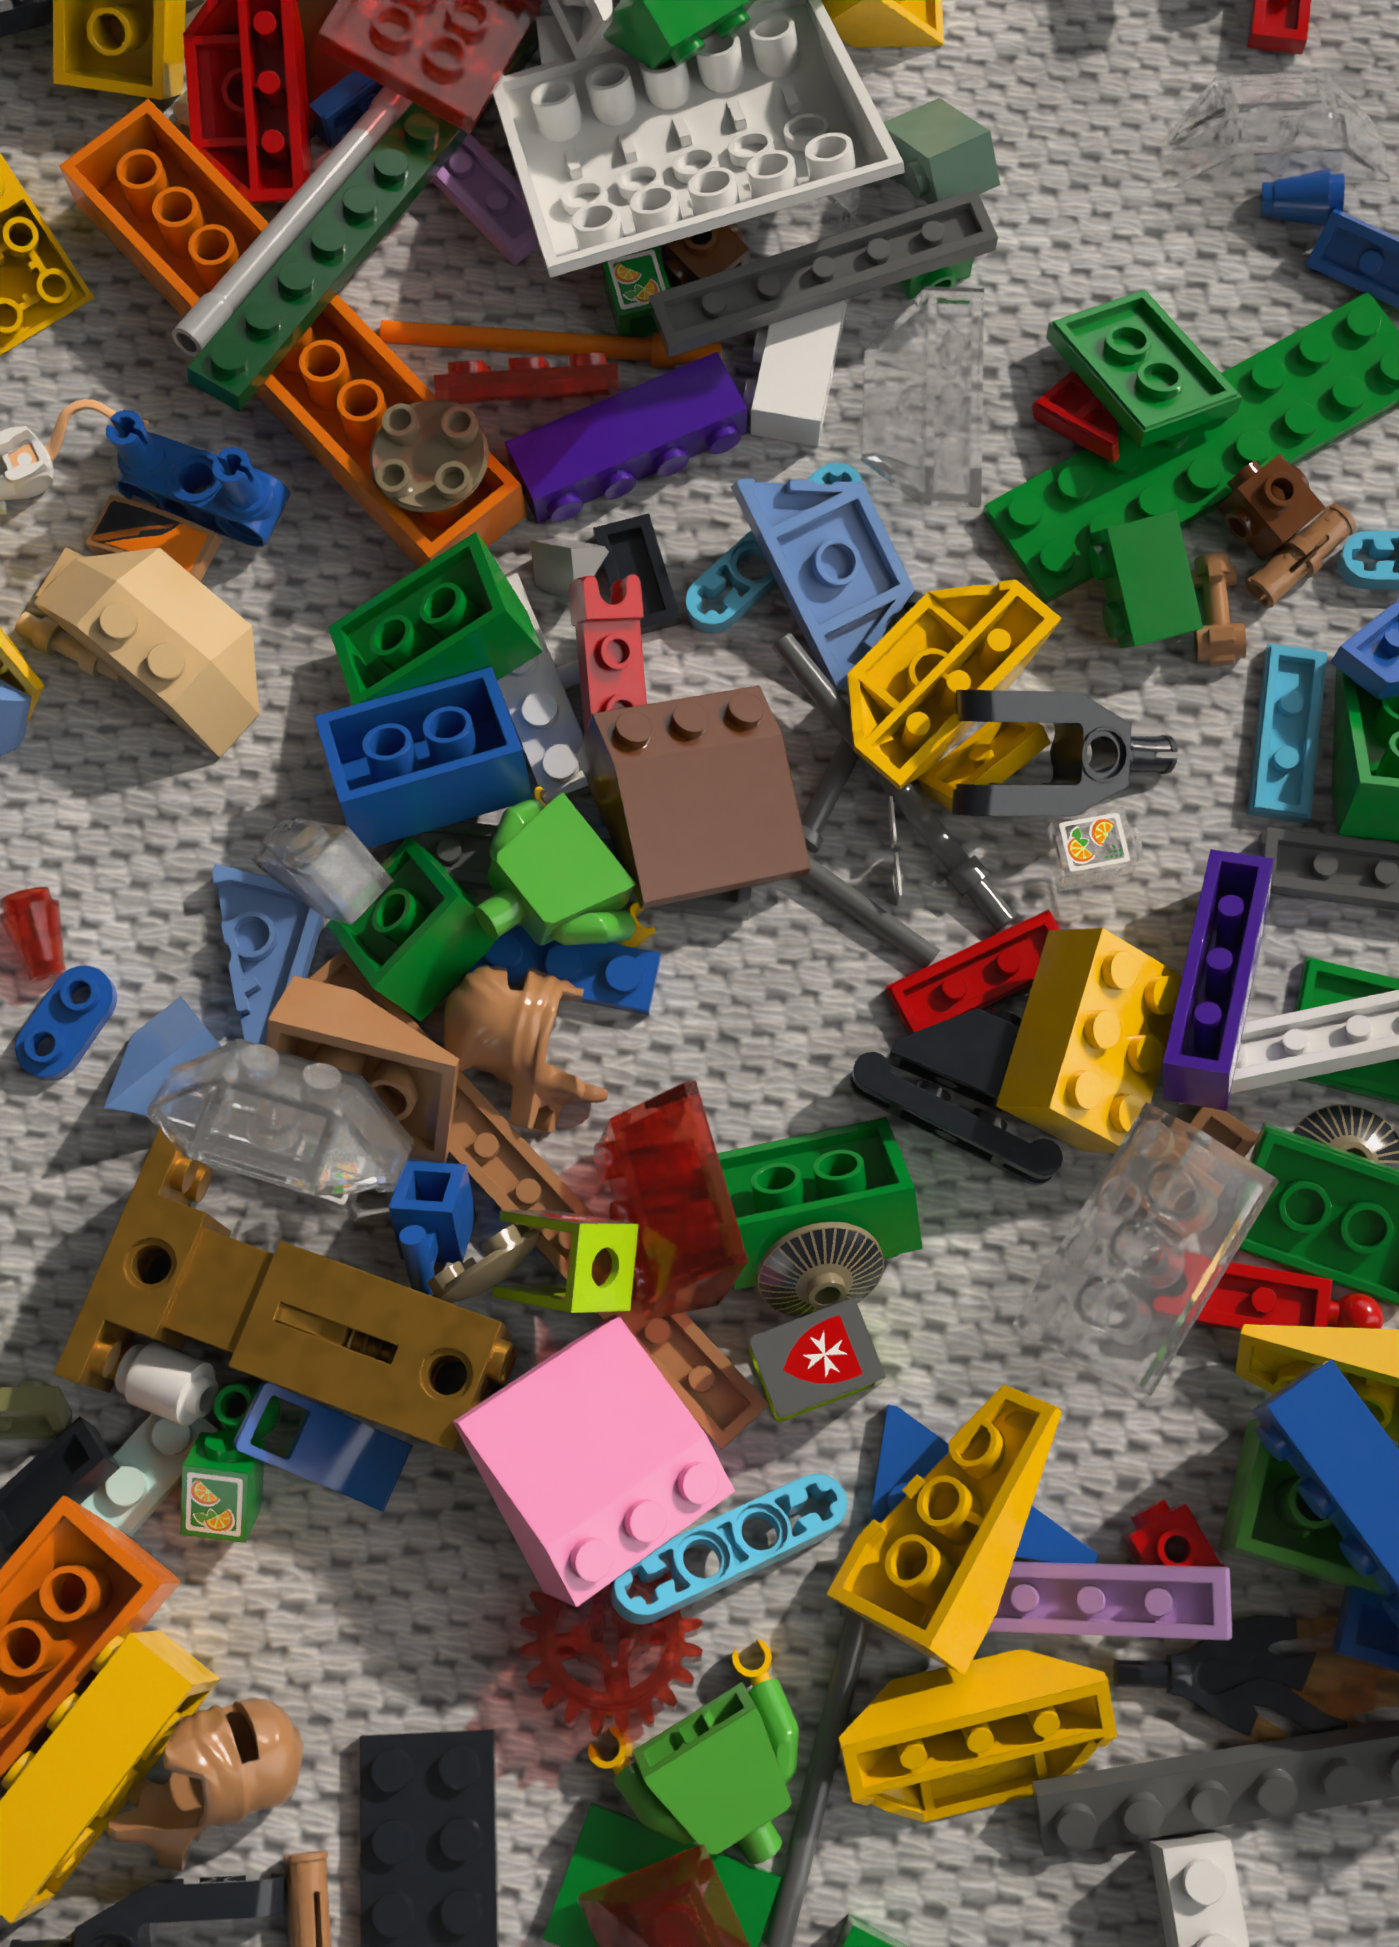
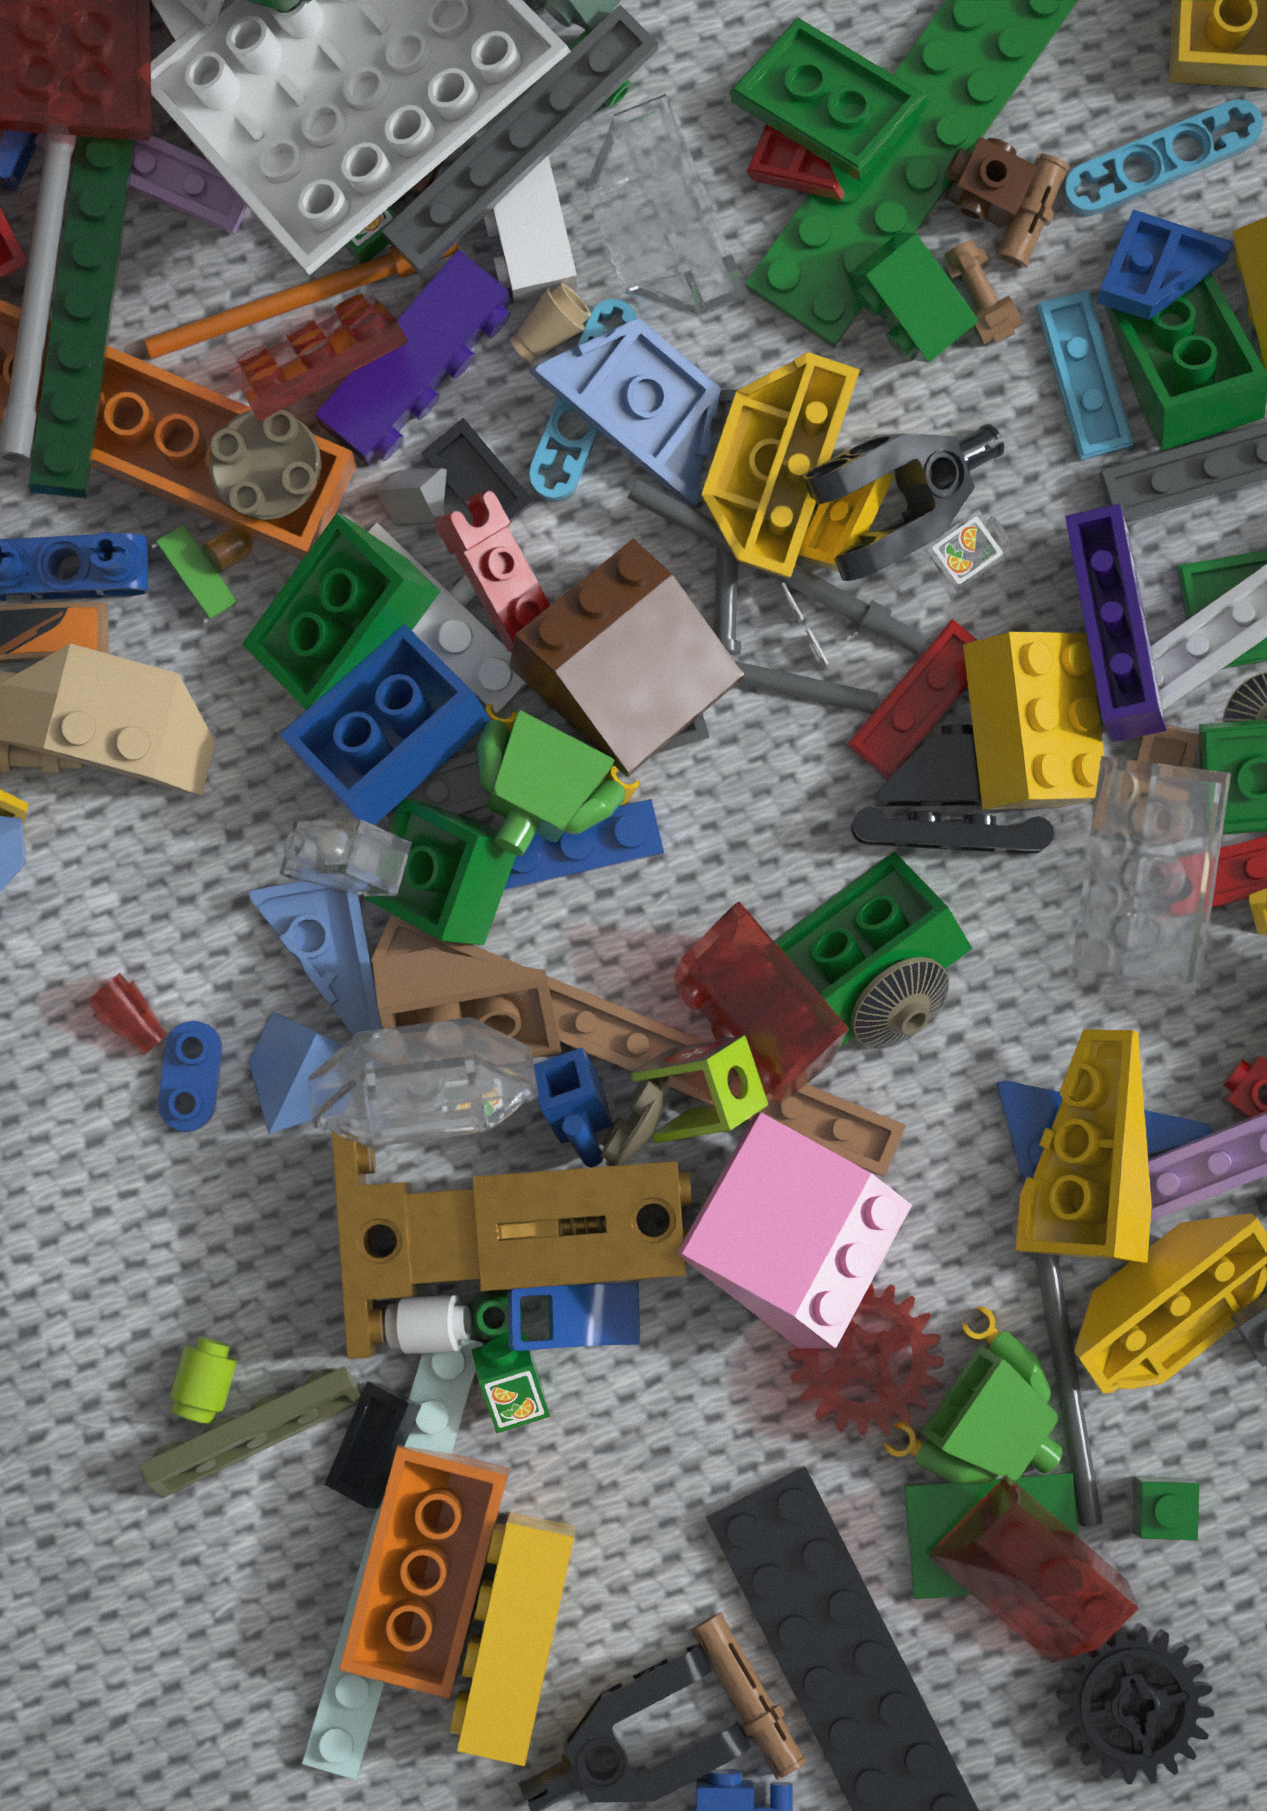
camera: 25 degrees left, 10 degrees up
(222, 1770) = (617, 1592): medium nougat piece -> none
(325, 544) = (201, 568): none -> bright green piece
(508, 1034) = (564, 923): medium nougat piece -> none
(733, 1553) = (932, 1253): medium azure beam -> none
(777, 458) = (551, 322): none -> tan cone
(815, 1360) = (927, 1075): dark grey piece -> none

